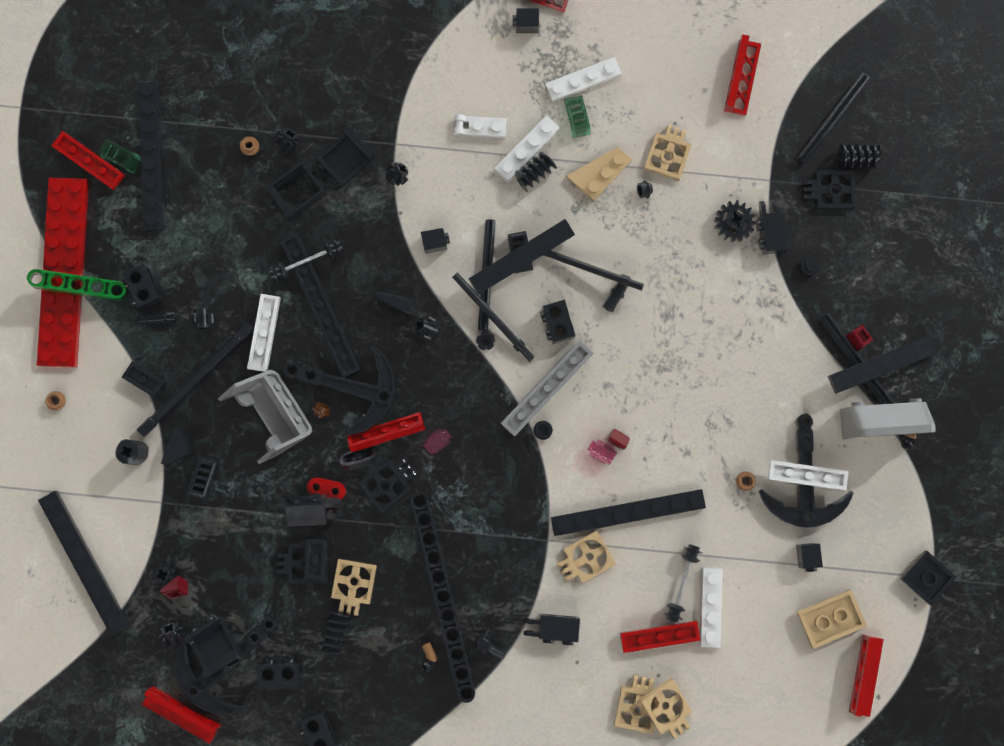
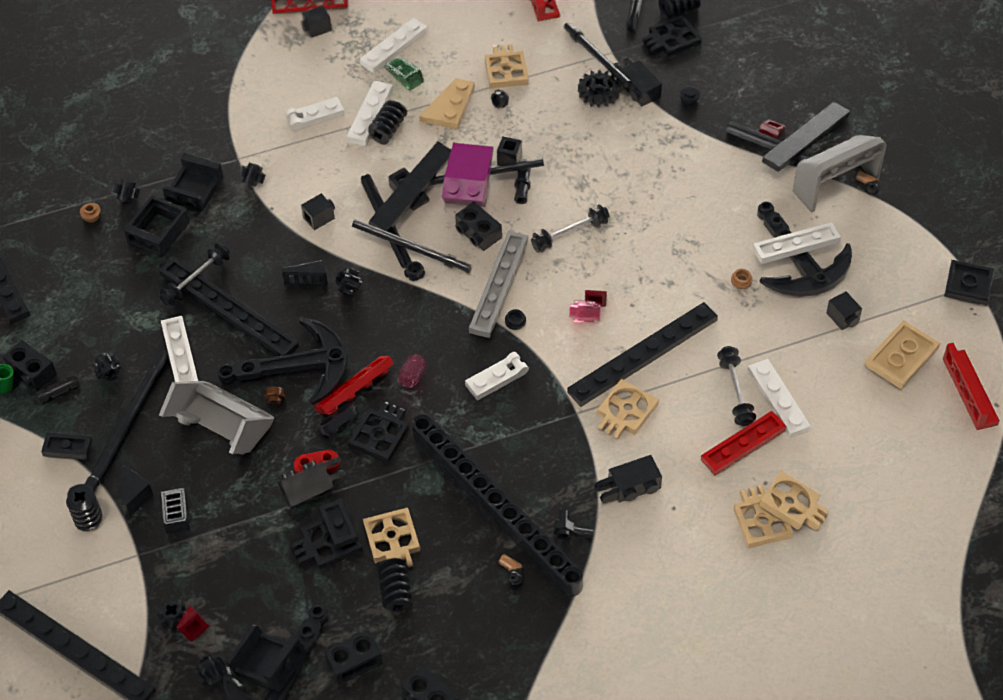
camera: 20 degrees left, 30 degrees down
(501, 476) = (496, 376): none -> white plate
(573, 268) = (467, 174): none -> magenta slope
(620, 260) = (509, 151): none -> black brick
(659, 360) = (594, 217): none -> black axle
(748, 149) = (578, 36): none -> black bar

